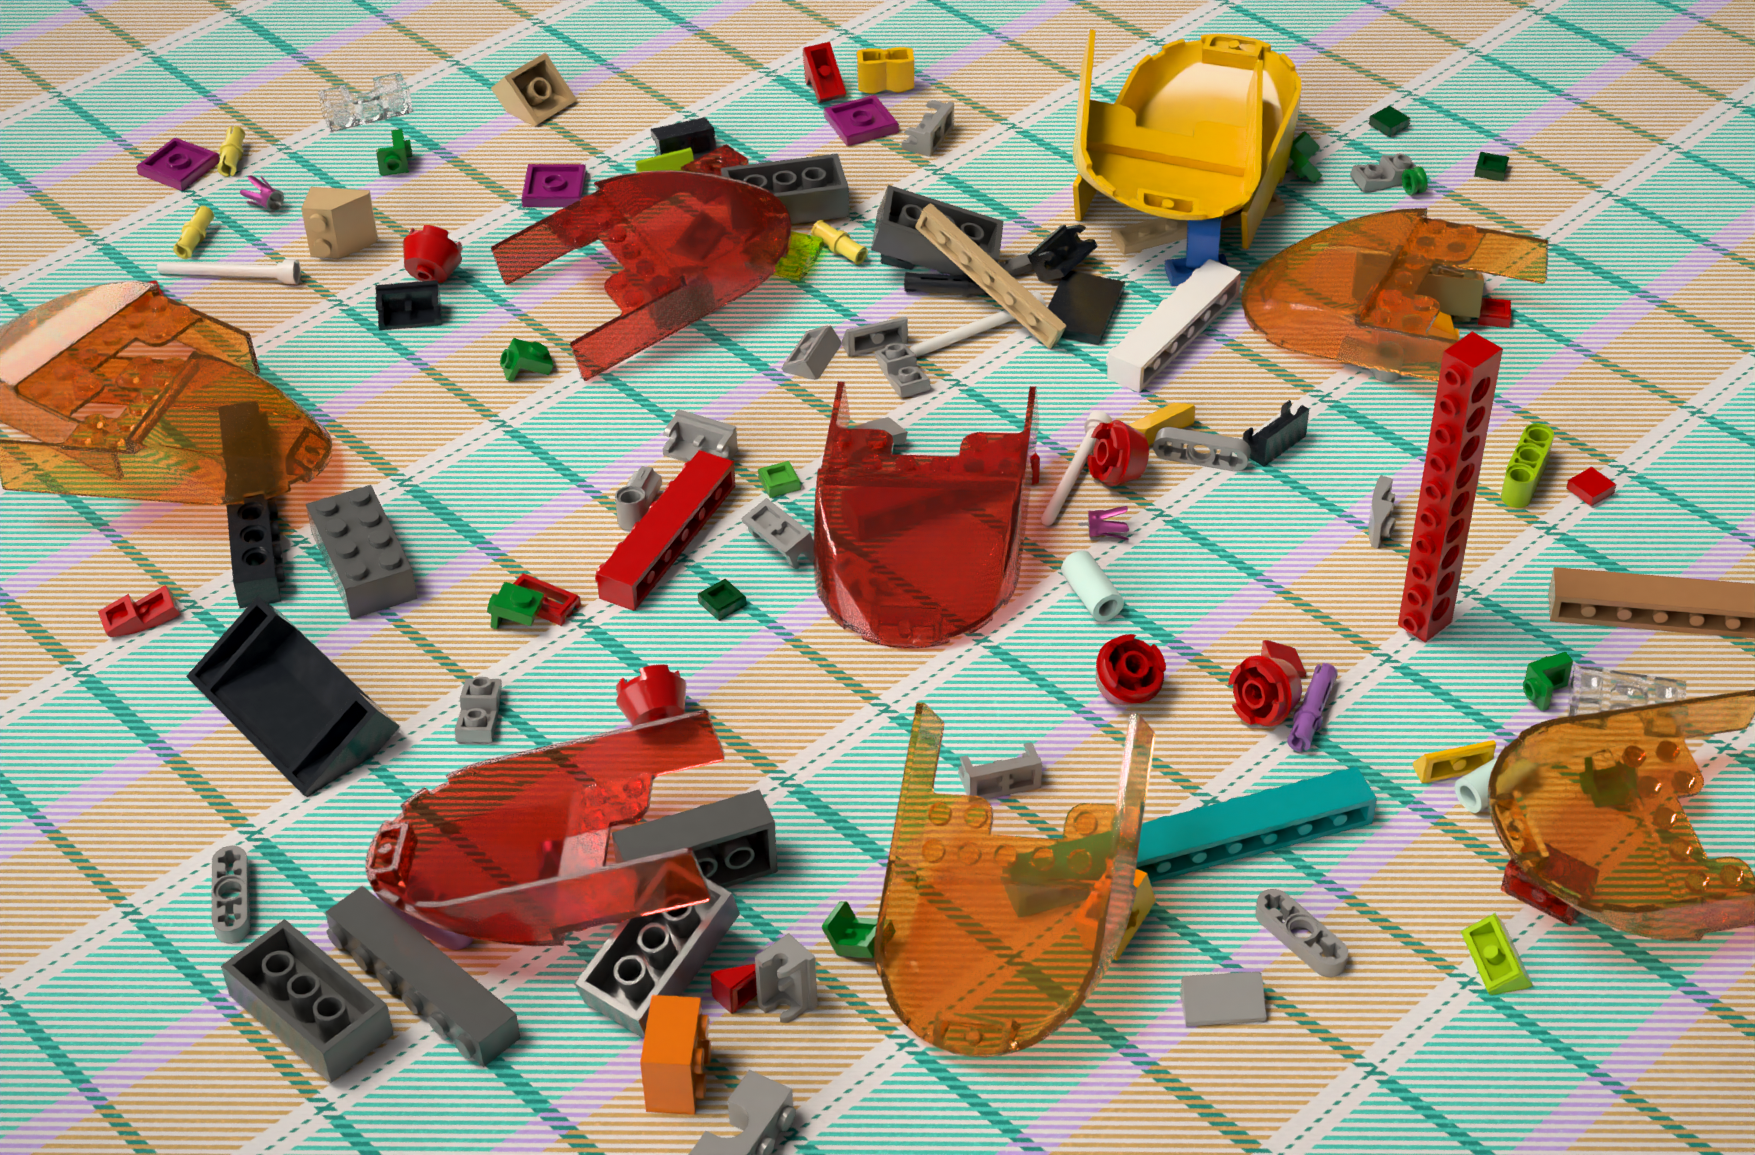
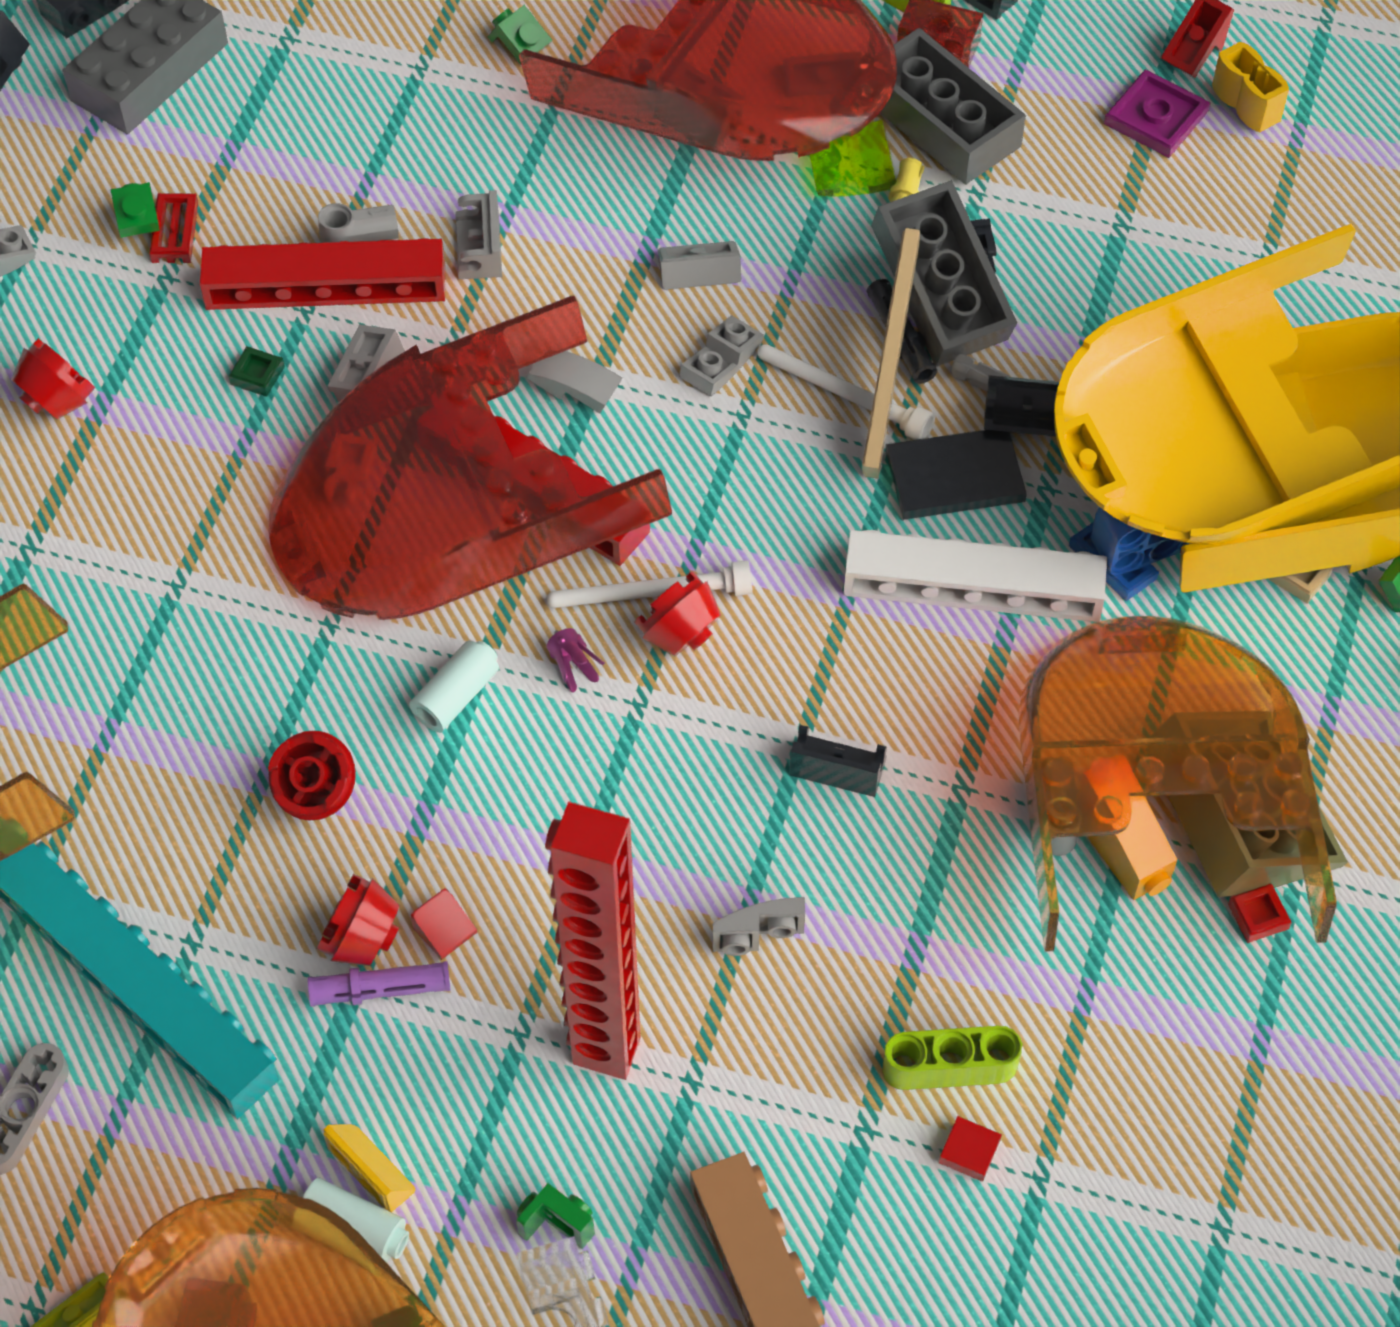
camera: 60 degrees right, 15 degrees up
(779, 479) = (467, 323): bright green tile -> none
(875, 336) = (757, 307): light grey slope -> none
(931, 130) = (1182, 185): light grey hinge -> none
(1001, 776) = (118, 725): light grey hinge -> none
(1173, 415) = (790, 638): yellow slope -> none
(1190, 456) = (760, 697): light grey beam -> none

